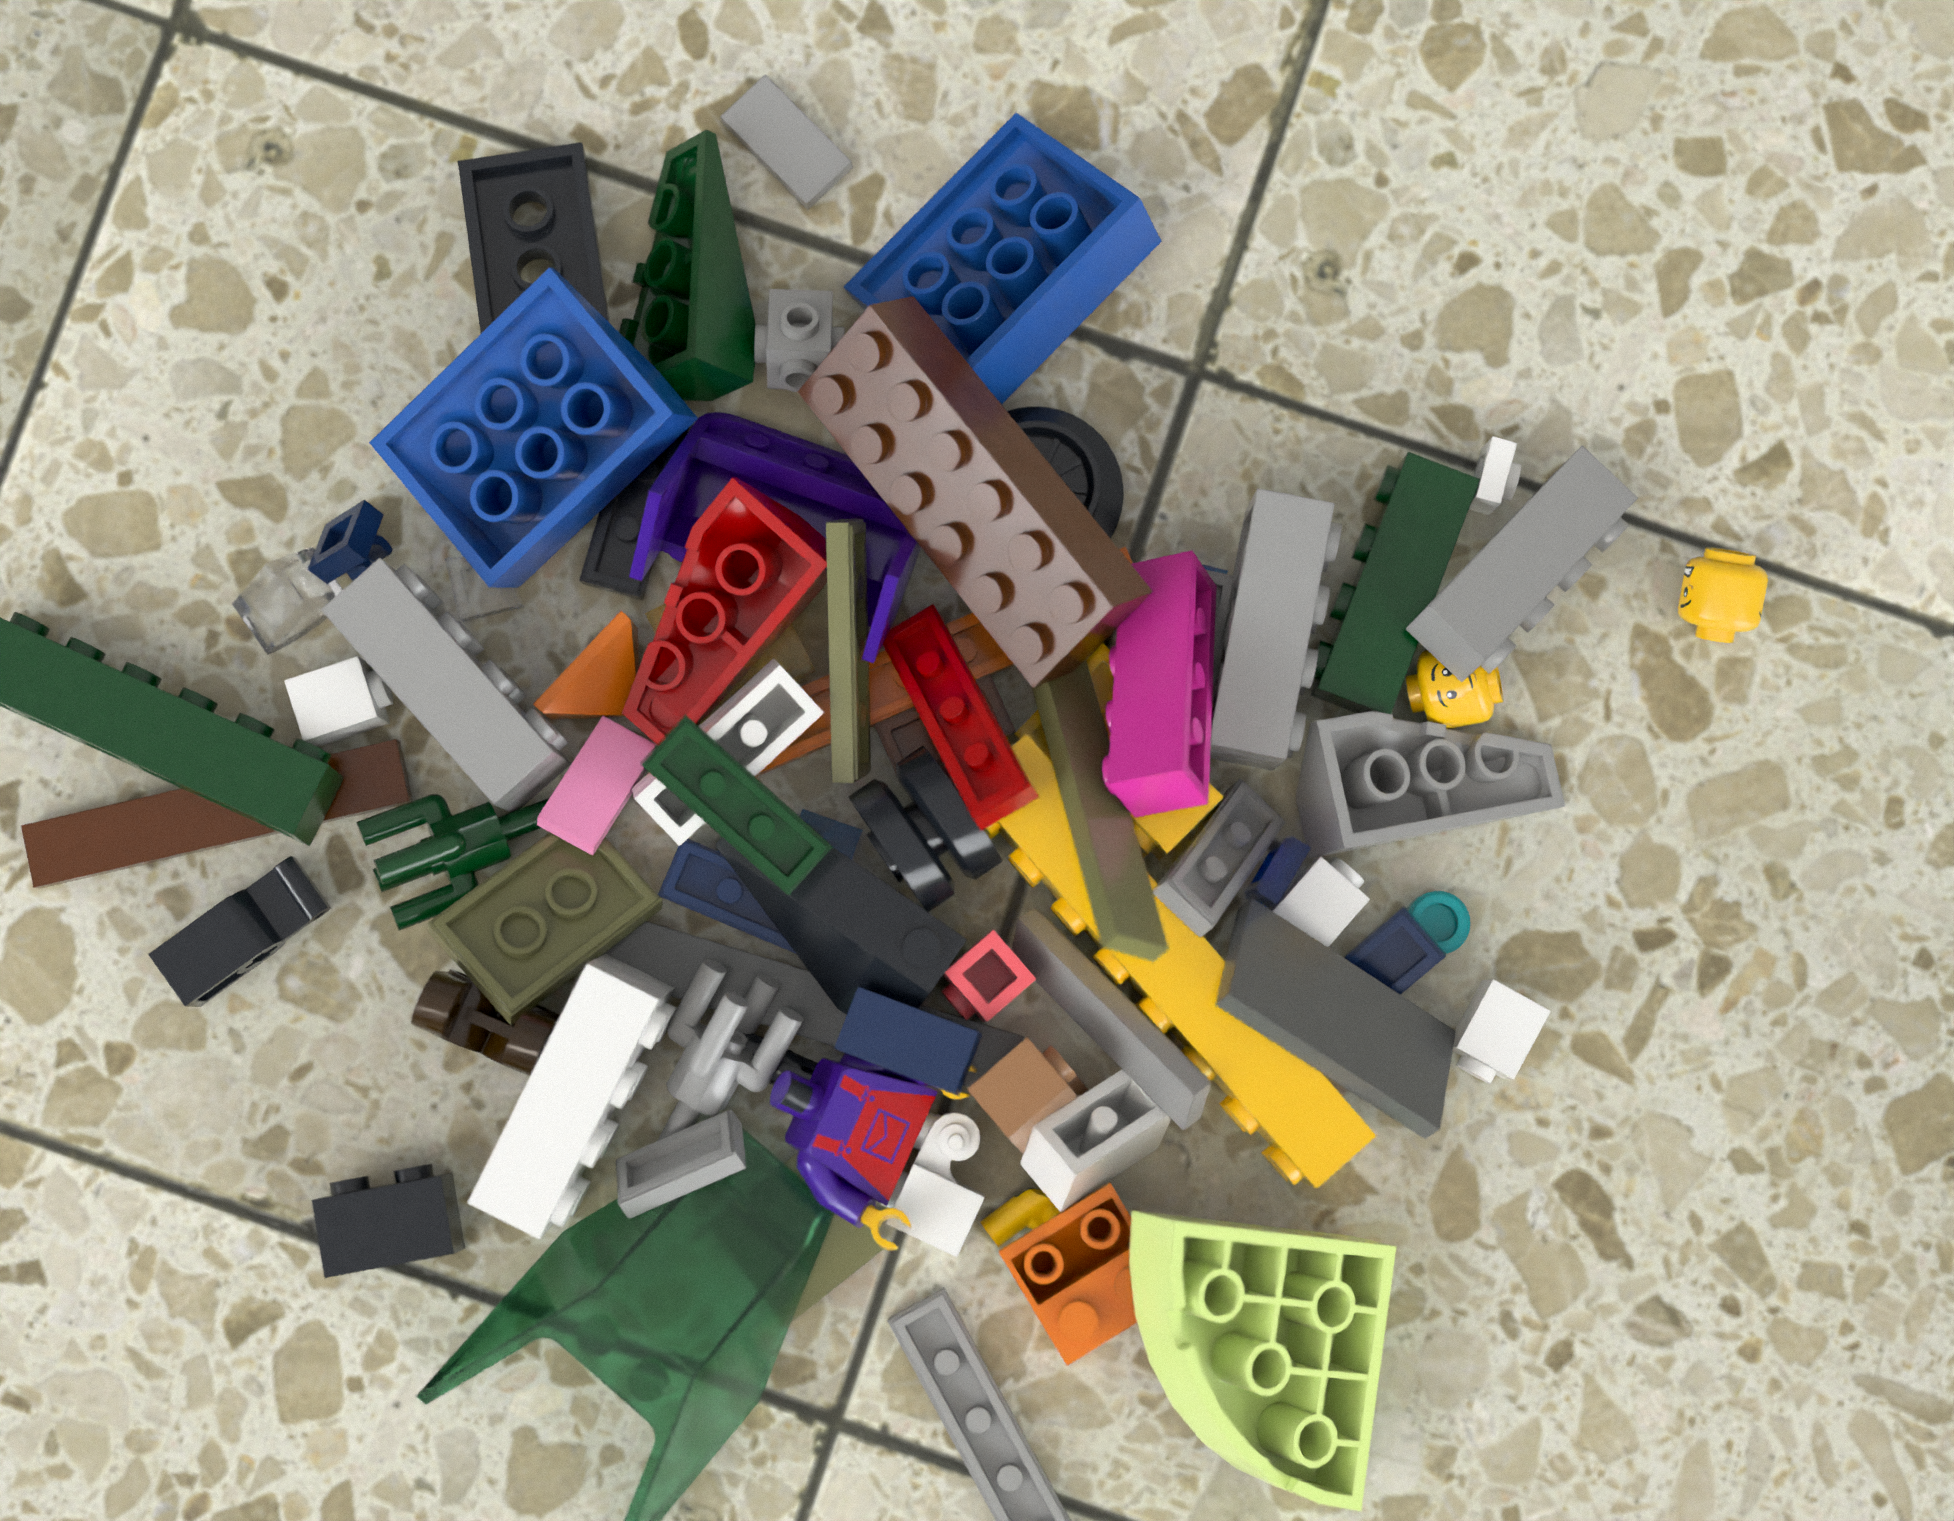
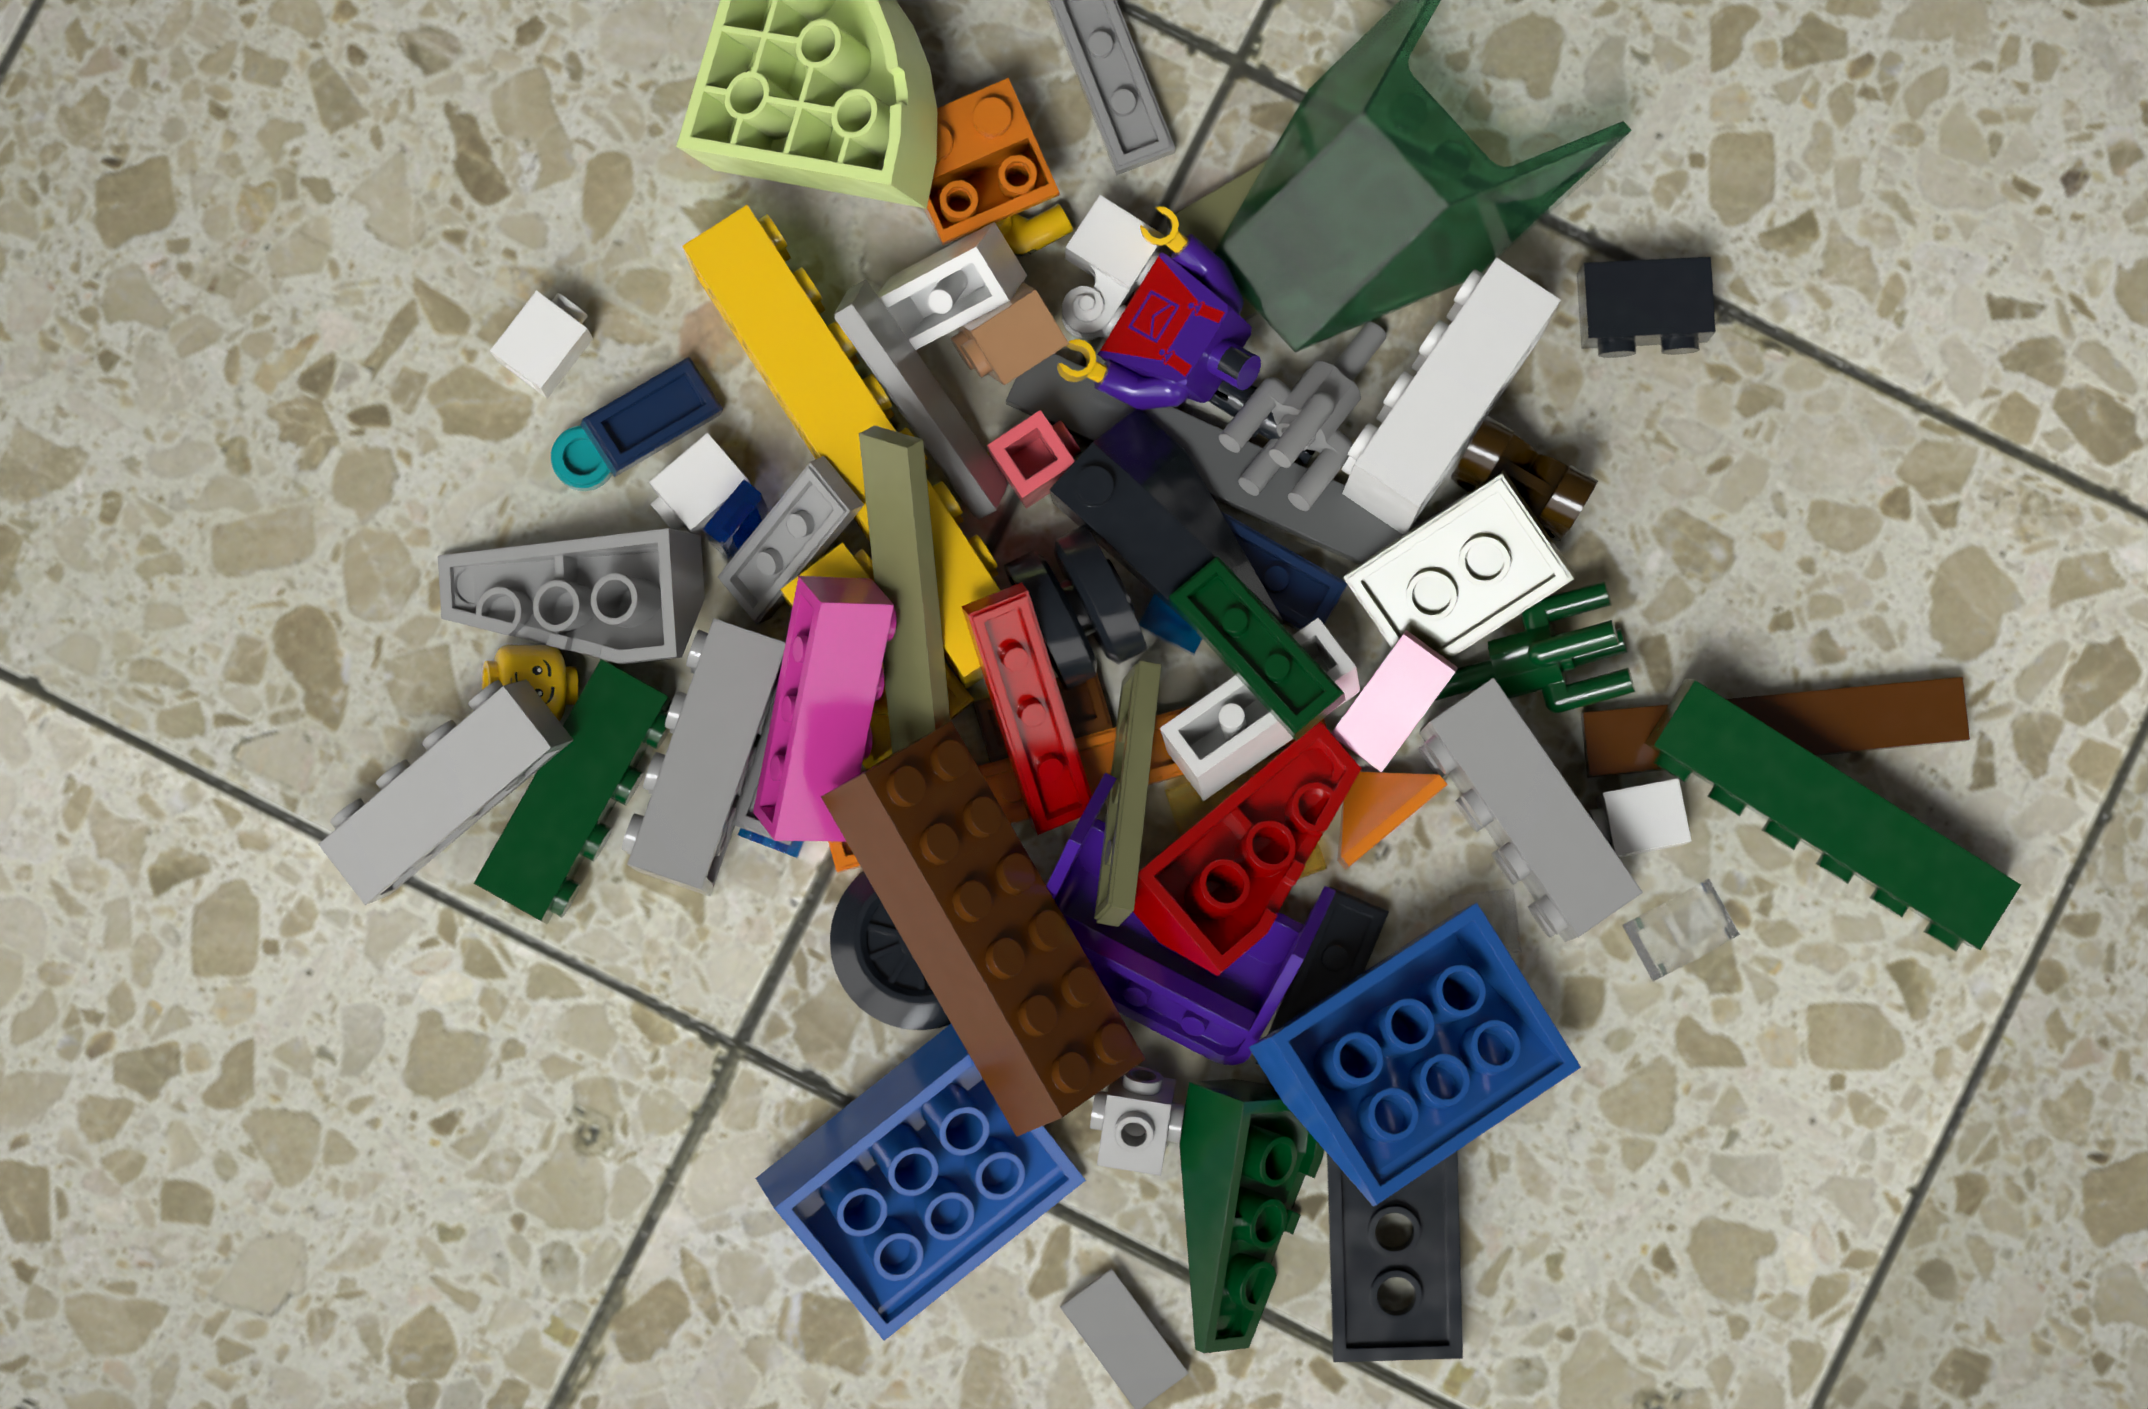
camera: 175 degrees left, 0 degrees up
(239, 933) = (1762, 604): black piece -> none
(349, 544) = (1615, 974): dark blue tile -> none
(680, 1163) = (1355, 318): light grey tile -> none
(908, 1041) = (1119, 399): dark blue tile -> none
(1336, 1018) = (701, 366): dark grey tile -> none
(1496, 475) = (454, 891): white plate -> none
(1722, 594) = (247, 741): yellow head -> none

